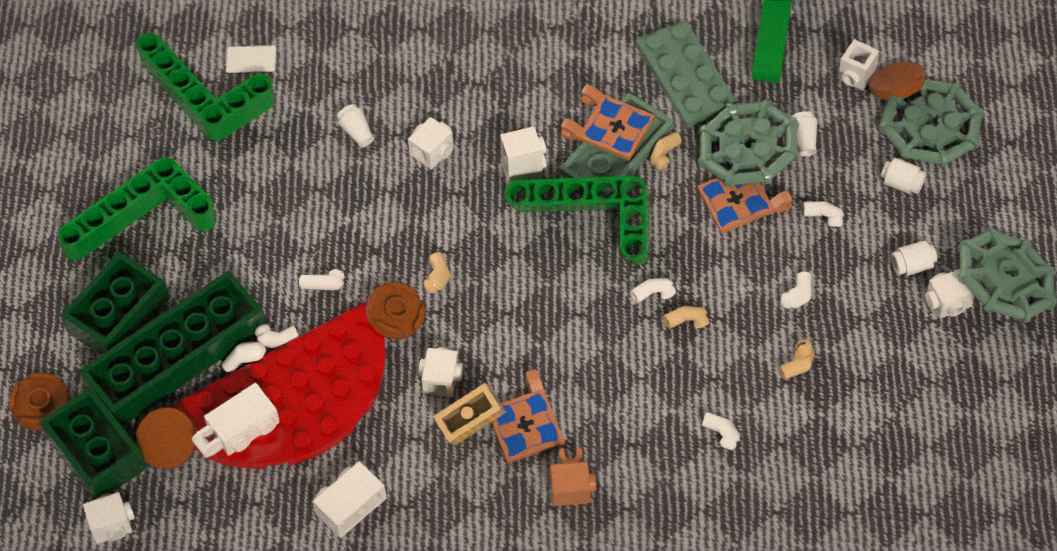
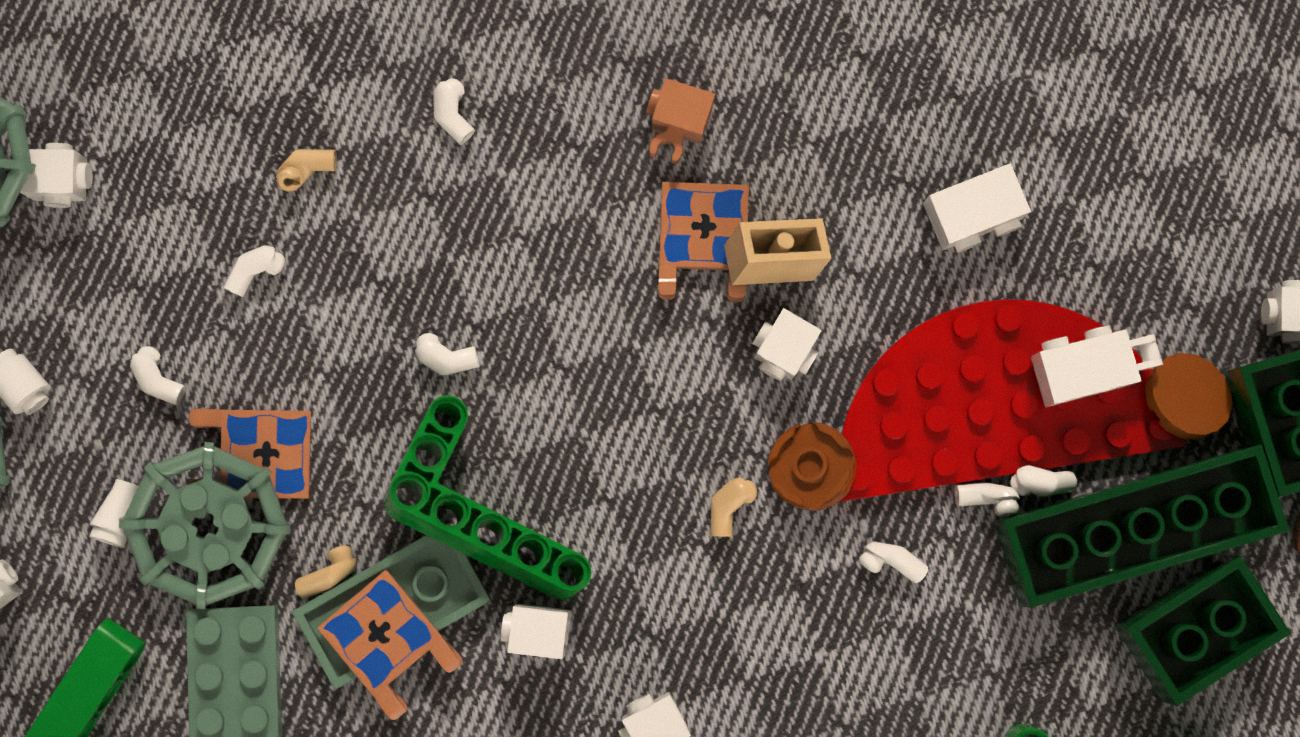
camera: 160 degrees left, 25 degrees up
(687, 313) = (416, 298): tan arm -> none
(914, 258) = (73, 248): white brick -> none

